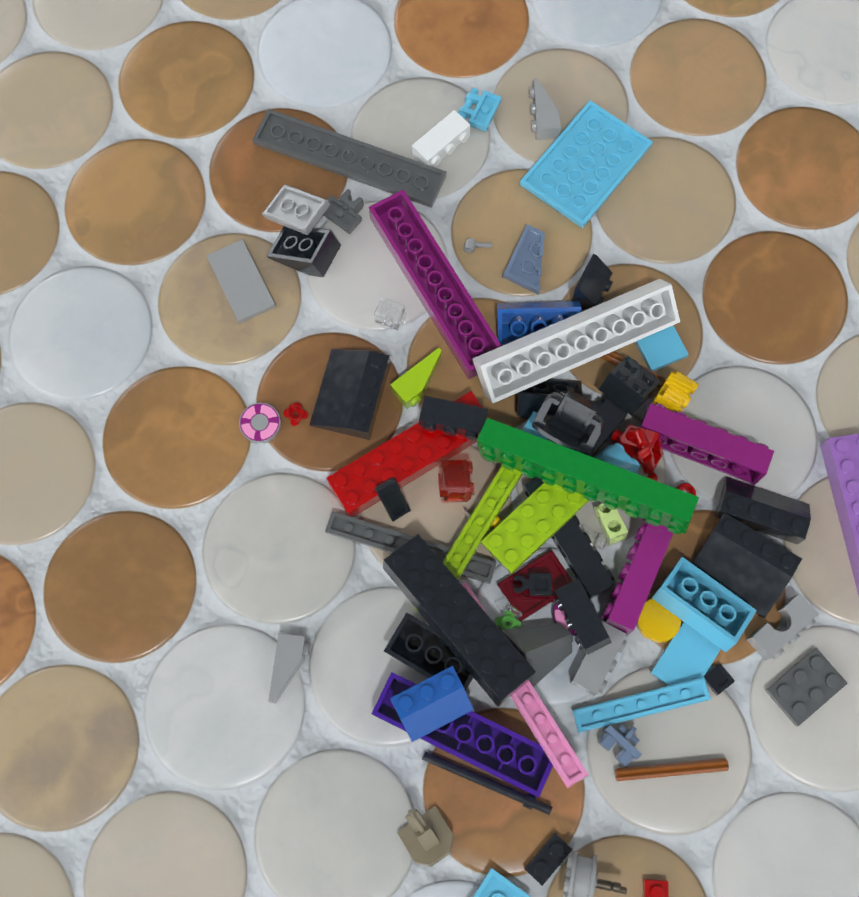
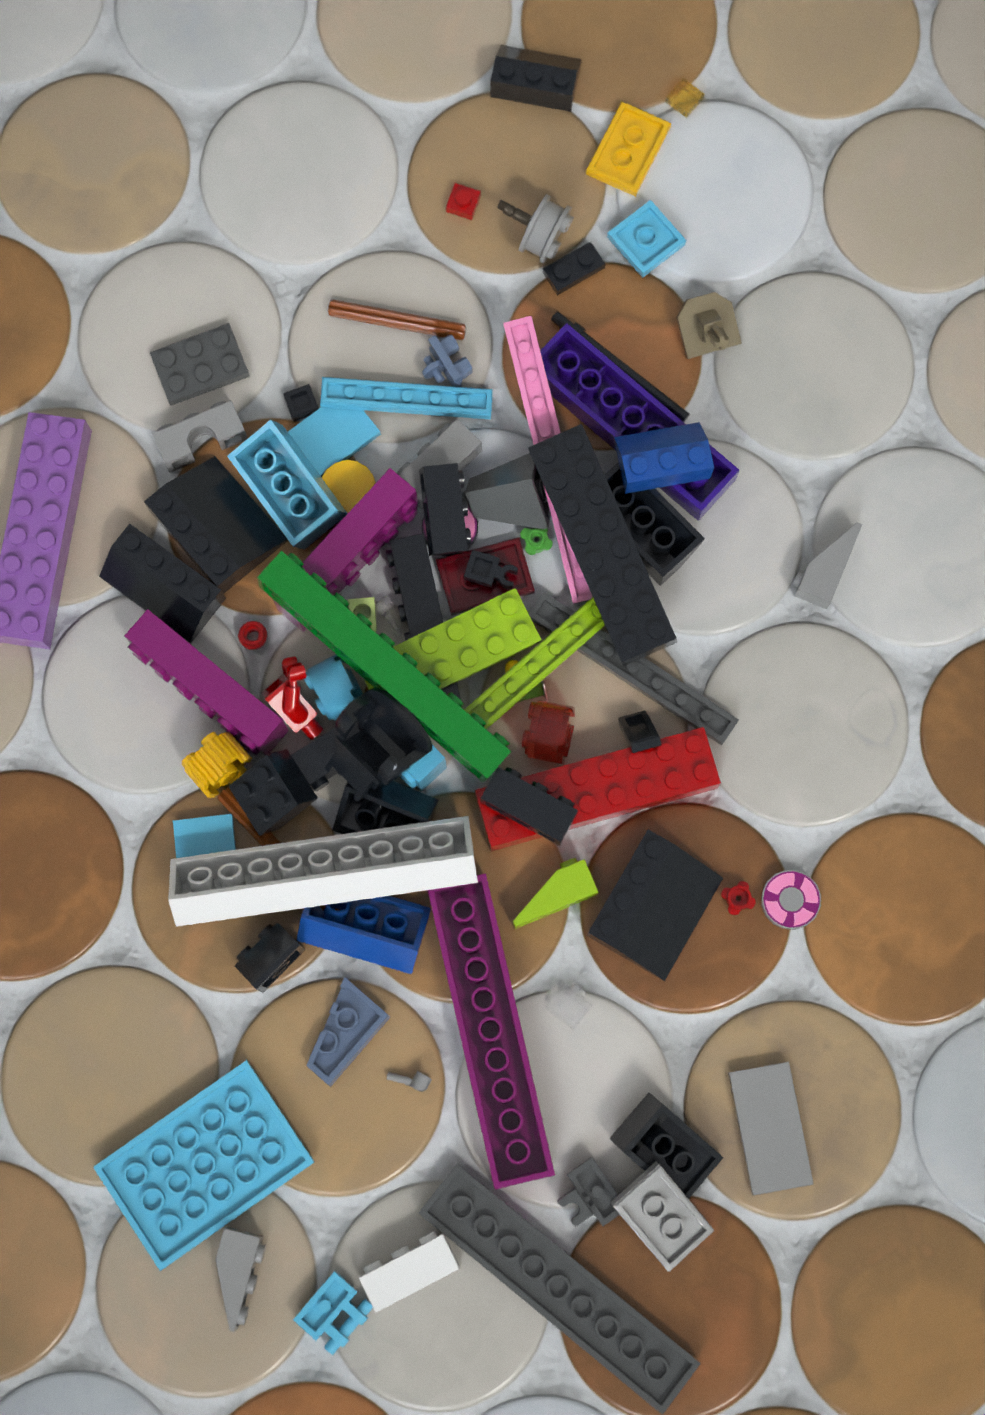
camera: 165 degrees left, 5 degrees up
(503, 604) = (534, 563): clear hand -> none

